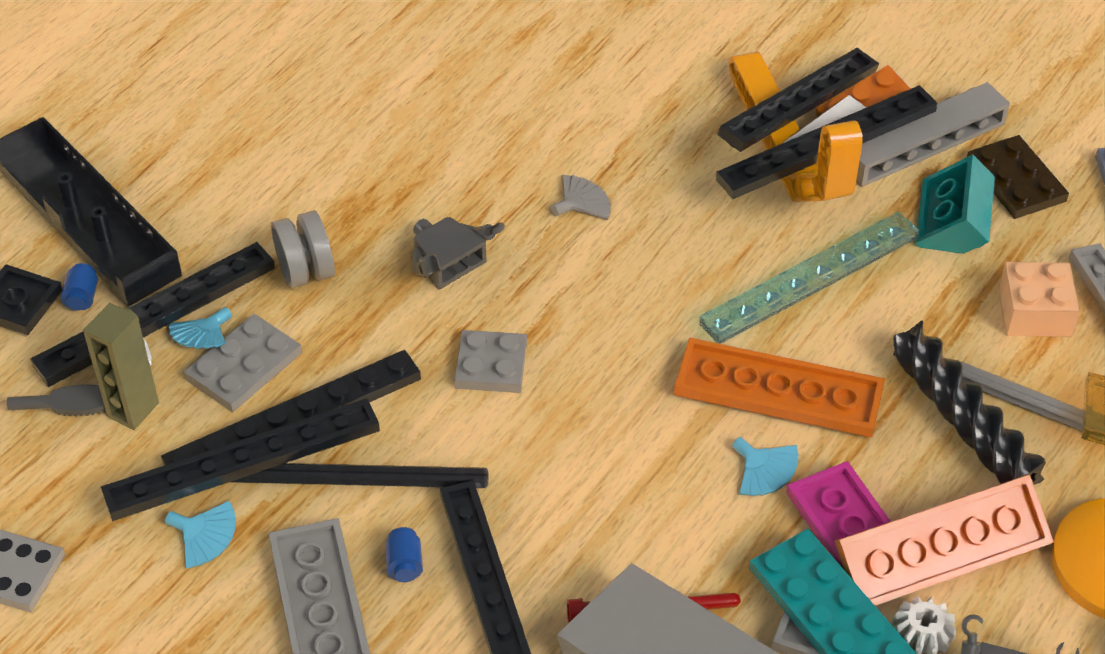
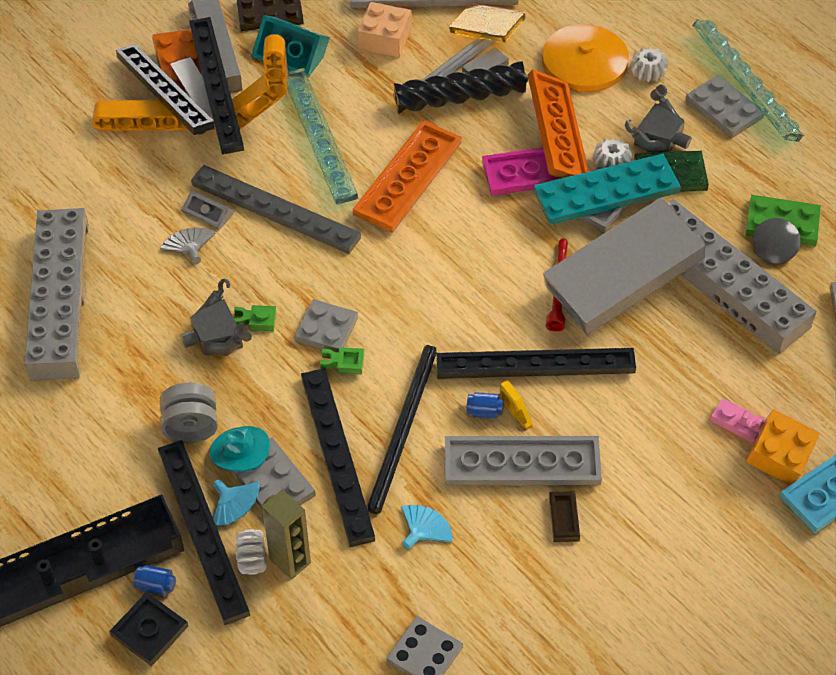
camera: 75 degrees left, 5 degrees up
(66, 400) = (271, 601): dark grey piece -> none
(239, 459) = (380, 486): black plate -> none
(273, 317) = (240, 449): none -> teal hat
(415, 589) = (515, 404): none -> yellow tile
(438, 389) = (346, 360): none -> bright green plate
(454, 94) = (56, 294): none -> light grey piece
(483, 290) = (258, 318): none -> bright green plate
(642, 201) = (207, 209): none -> light grey slope
(666, 269) = (276, 209): none -> dark grey plate
(766, 468) = (467, 201): medium azure hand -> none
(1043, 435) = (487, 60): none -> light grey tile

